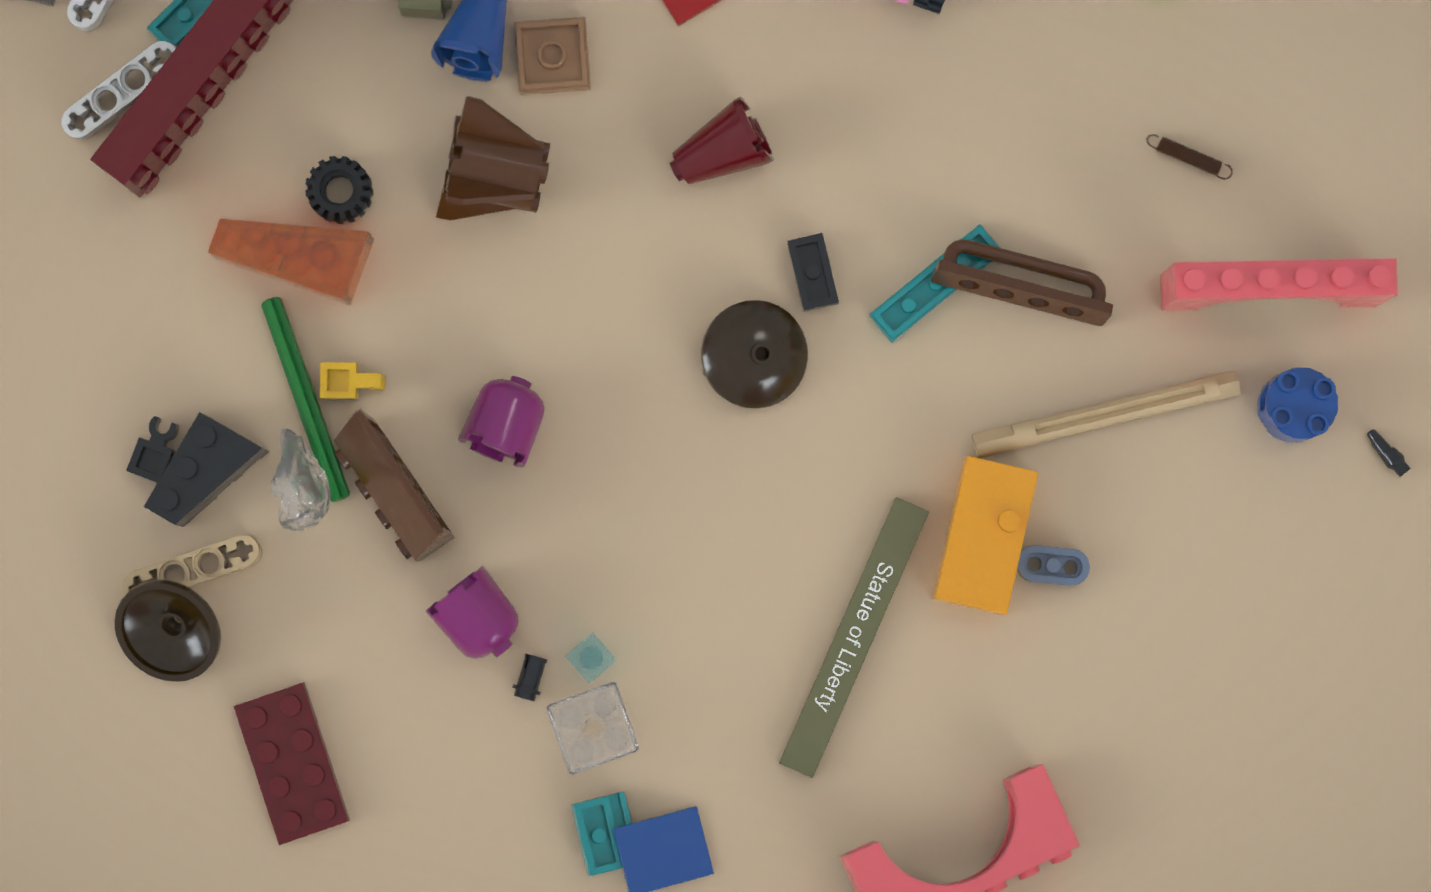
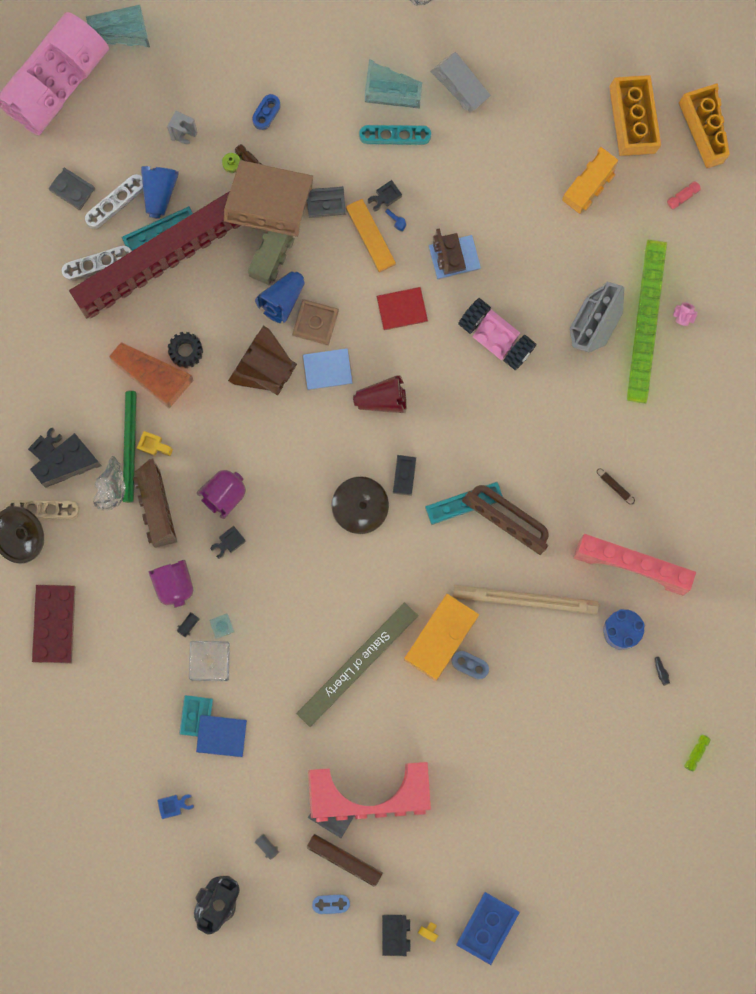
camera: 20 degrees right, 5 degrees down
(549, 501) = (230, 540): none -> black plate
(605, 132) = (327, 369): none -> light blue piece

